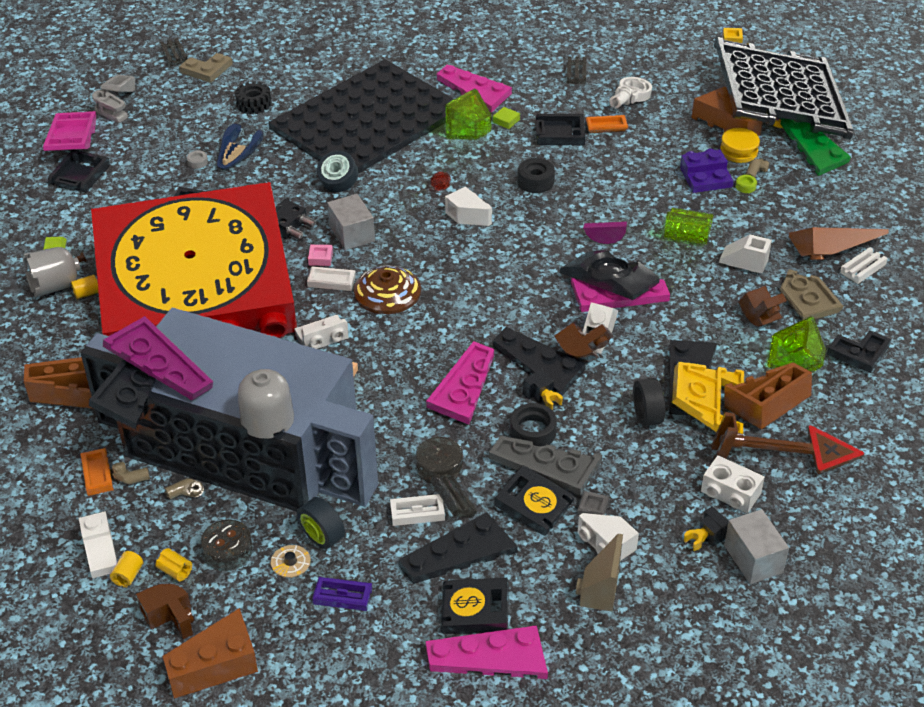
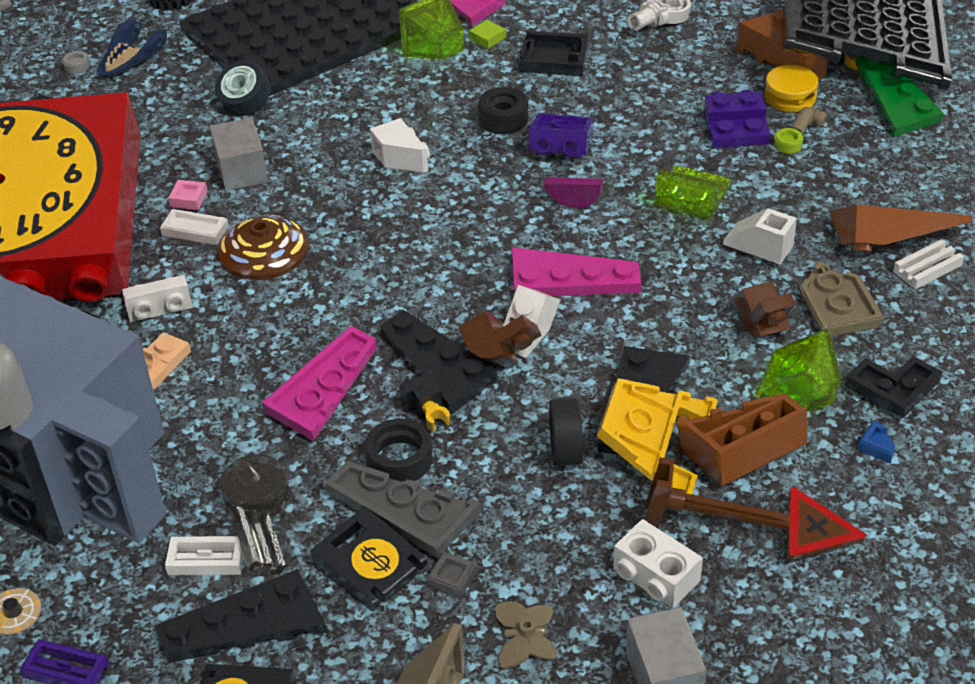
camera: 10 degrees right, 0 degrees up
(291, 217) = (162, 144): black piece -> none
(320, 522) = (60, 561): black wheel -> none
(440, 181) = (374, 109): clear red plate -> none
(584, 190) = (560, 134): none -> dark purple plate
(601, 529) = (444, 607): white slope -> none
(606, 124) = (618, 49): orange tile -> none
(611, 274) = (566, 249): black slope -> none
(655, 538) = (526, 631): none -> dark tan piece
(712, 529) = (608, 627): black piece -> none
(857, 391) = (877, 443): none -> blue tile

